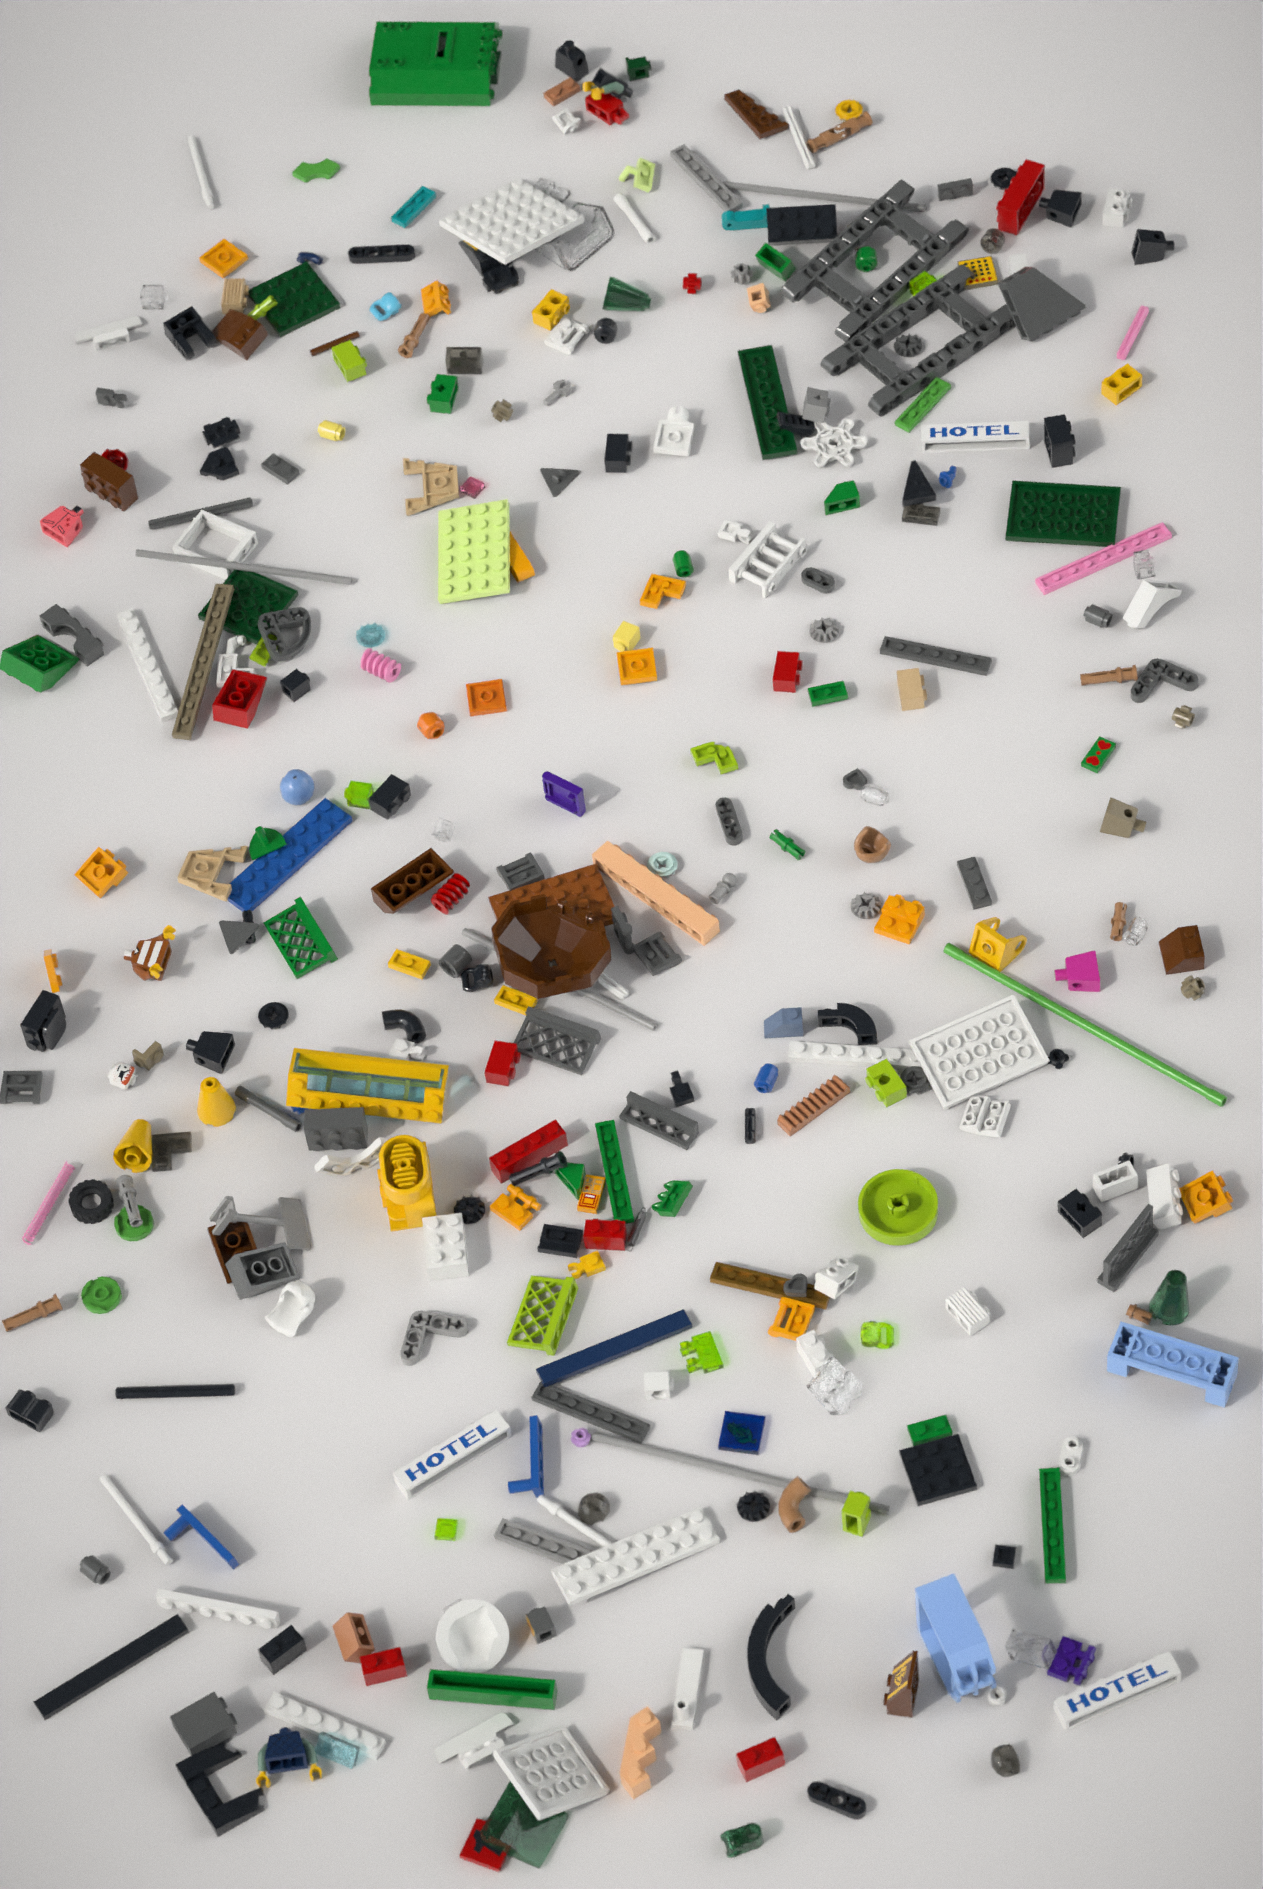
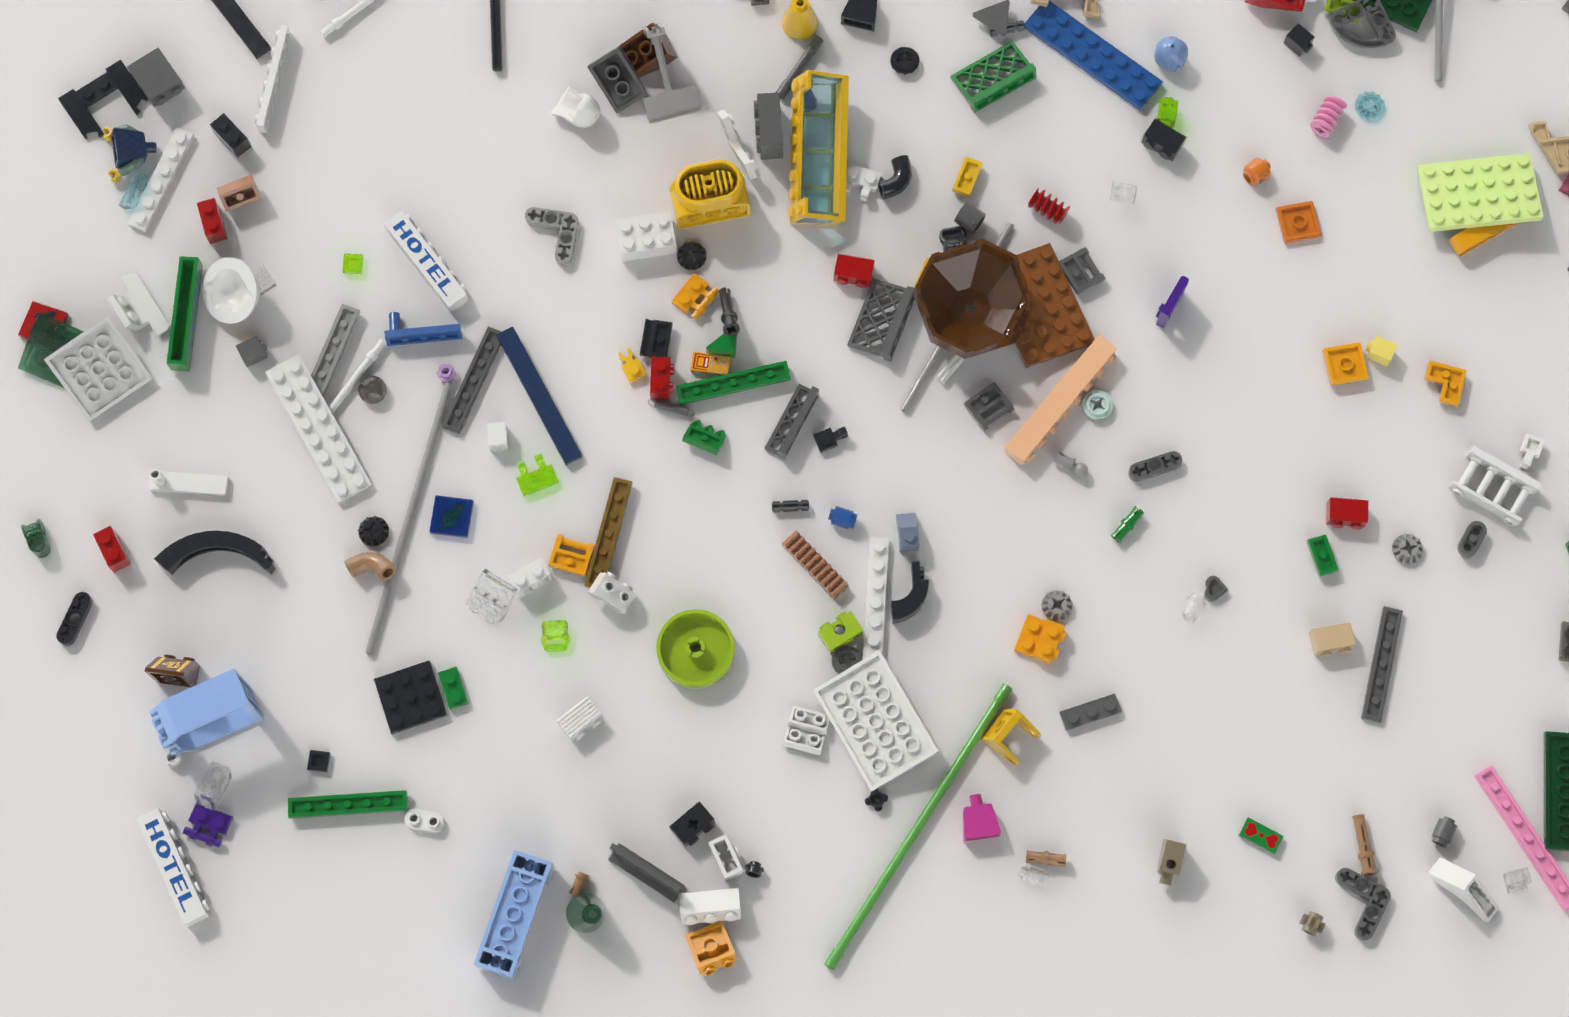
camera: 80 degrees right, 20 degrees up
(187, 1518) = (360, 47): blue piece -> none
(265, 841) = (1105, 31): green shield -> none
(410, 881) = (1057, 168): reddish brown slope -> none
(528, 1150) = (753, 302): red brick -> none
(559, 1313) = (570, 342): lime fence -> none
(622, 930) = (1009, 368): dark grey plate -> none
(639, 1752) = (122, 442): light nougat brick -> none
(683, 564) = (1482, 401): green brick -> none
(712, 752) = (1239, 447): lime plate -> none
(797, 1286) = (602, 556): dark grey tile -> none
(856, 1513) = (355, 621): lime brick -> none
(871, 845) = (1125, 606): medium nougat piece -> none
(1005, 1760) = (103, 766): clear smoke hair -> none
(1182, 950) = (1010, 924): reddish brown slope -> none
(1192, 987) = (963, 934): dark tan gear -> none

